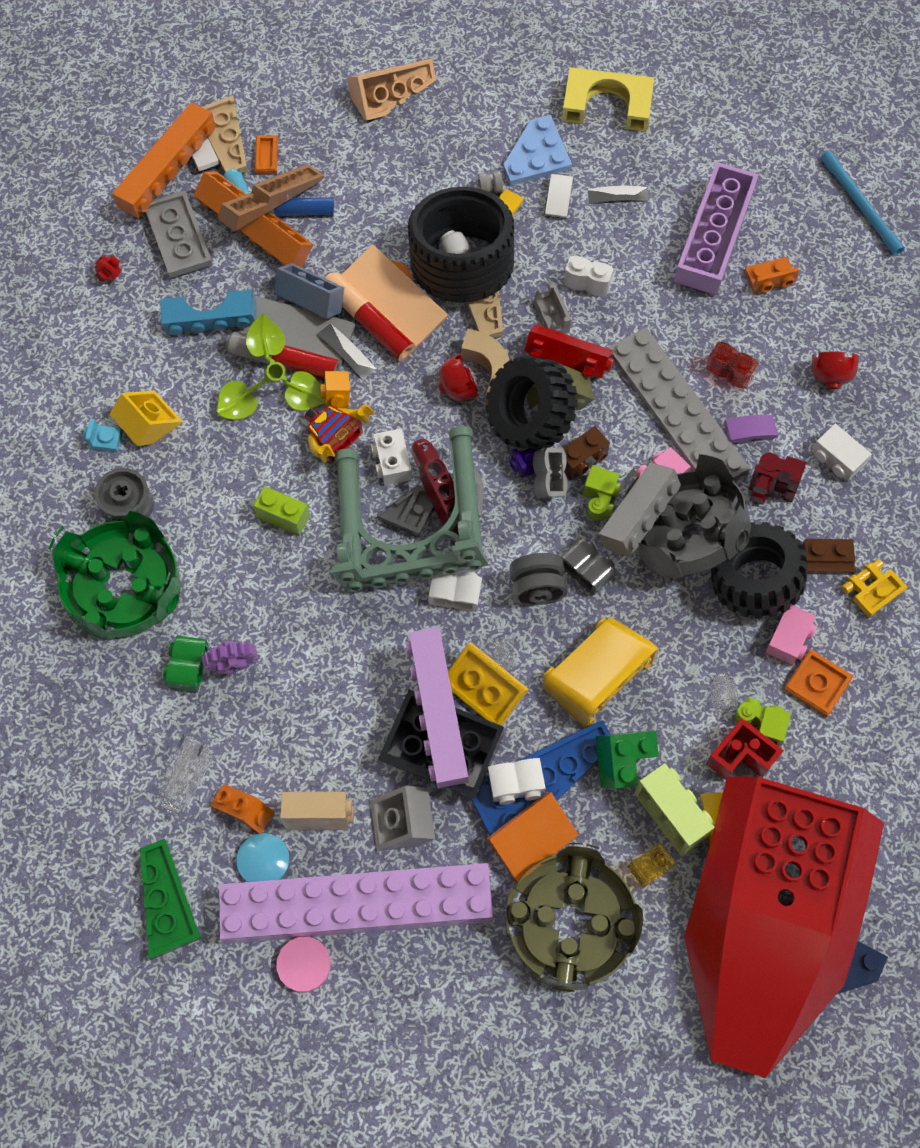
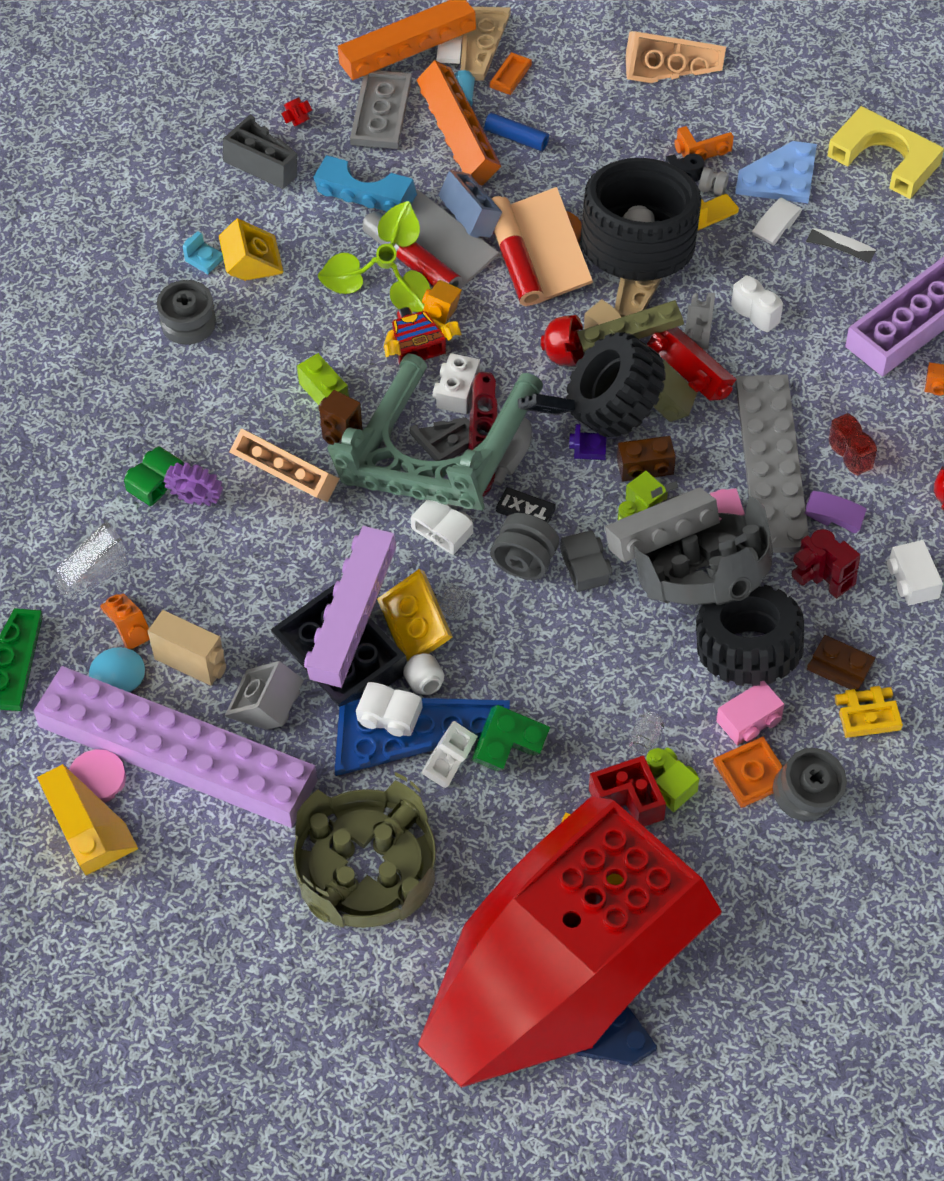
camera: 30 degrees right, 10 degrees down
(100, 322) = (259, 153): none -> dark grey wedge
(111, 547) = (150, 347): green piece -> none
(267, 196) = (482, 103): medium nougat slope -> none
(294, 601) = (284, 465): none -> light nougat brick
(318, 538) = (337, 415): none -> reddish brown brick
(323, 1012) = (89, 825): none -> yellow wedge
(347, 351) = (476, 275): sticker -> none
(458, 162) = (707, 148): none -> orange bracket
(463, 178) = (691, 164): none -> black leg
(487, 447) = (546, 404): none -> black tile
(509, 345) = (638, 324): none -> olive plate
(511, 541) = (519, 502): none -> black tile
(521, 731) = (423, 674): none -> white head
(532, 836) = (374, 764): orange tile -> none
(550, 475) = (597, 466): light grey brick -> none
(582, 790) = (449, 754): none -> white slope
(599, 669) = (535, 653): yellow windscreen -> none
(651, 865) = (473, 850): clear yellow bracket -> none
(674, 809) = (524, 803): yellowish green brick -> none
(874, 675) = (809, 784): none -> dark grey wheel

